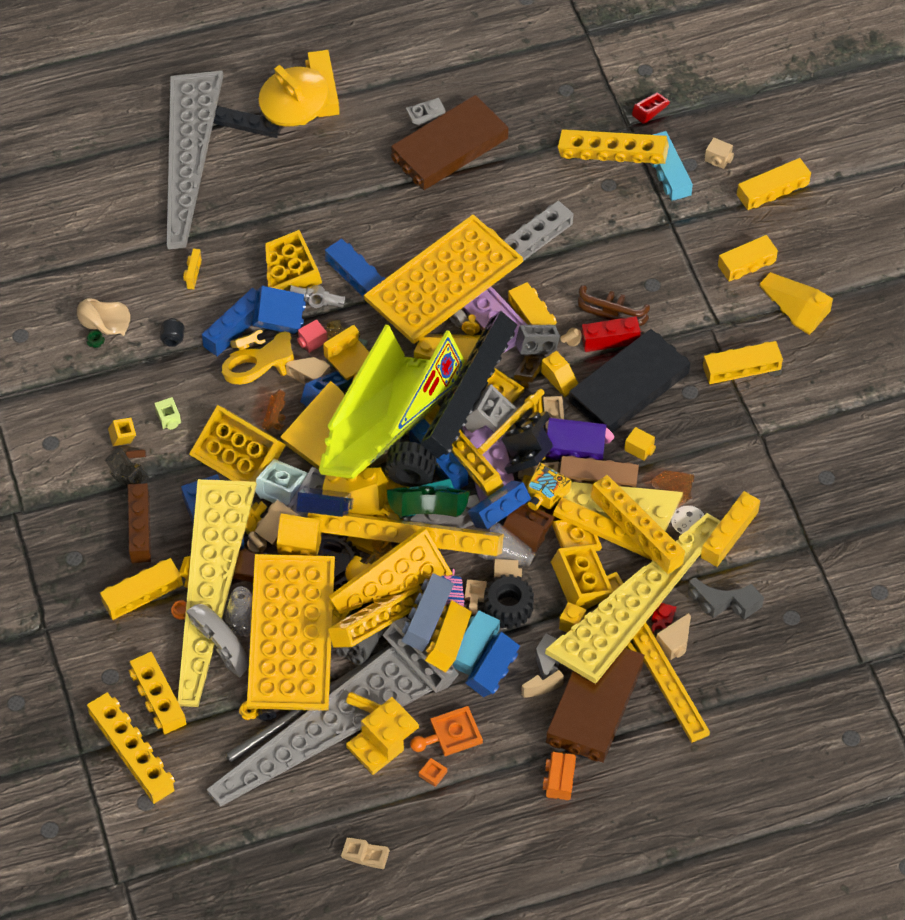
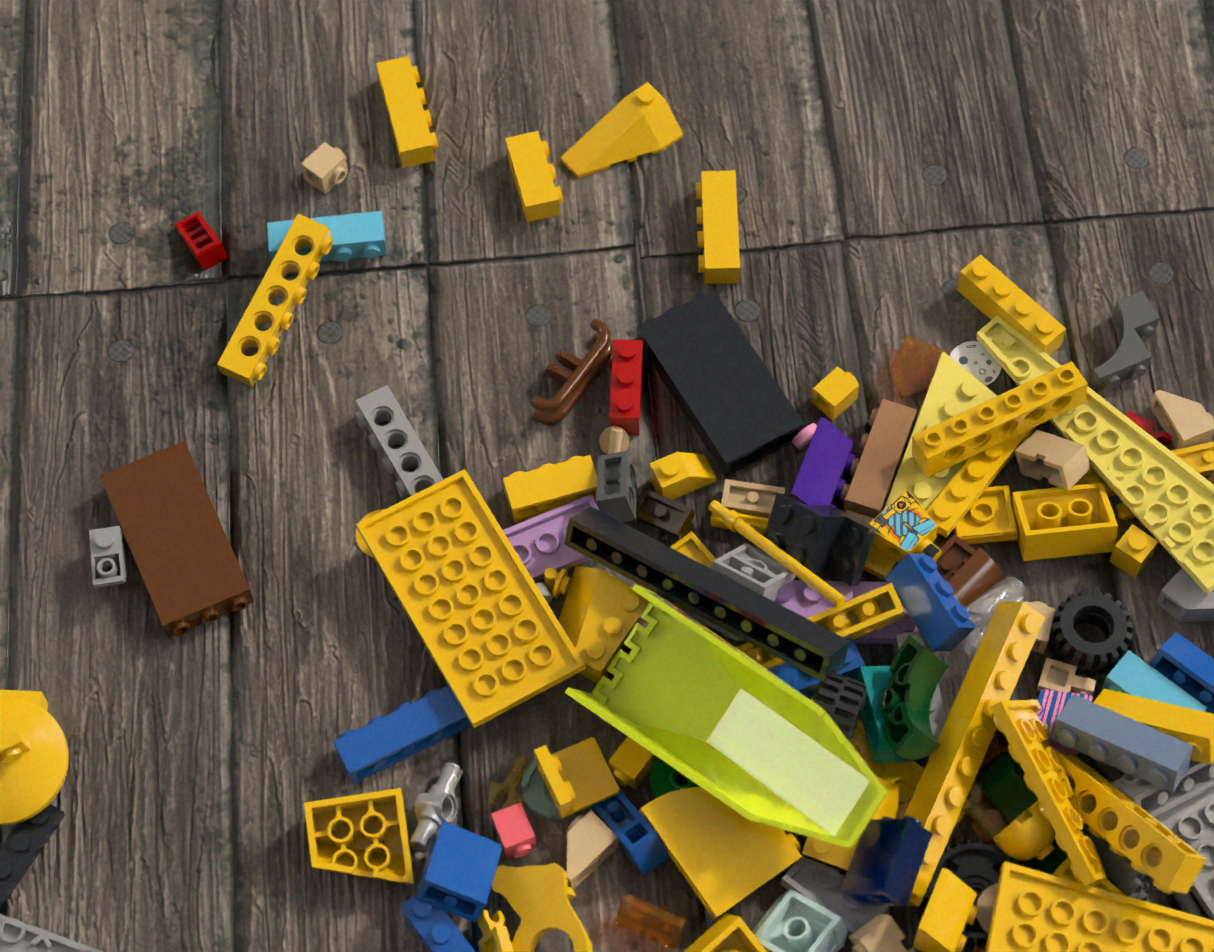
camera: 75 degrees left, 5 degrees up
(622, 563) = (1052, 458): none -> tan brick

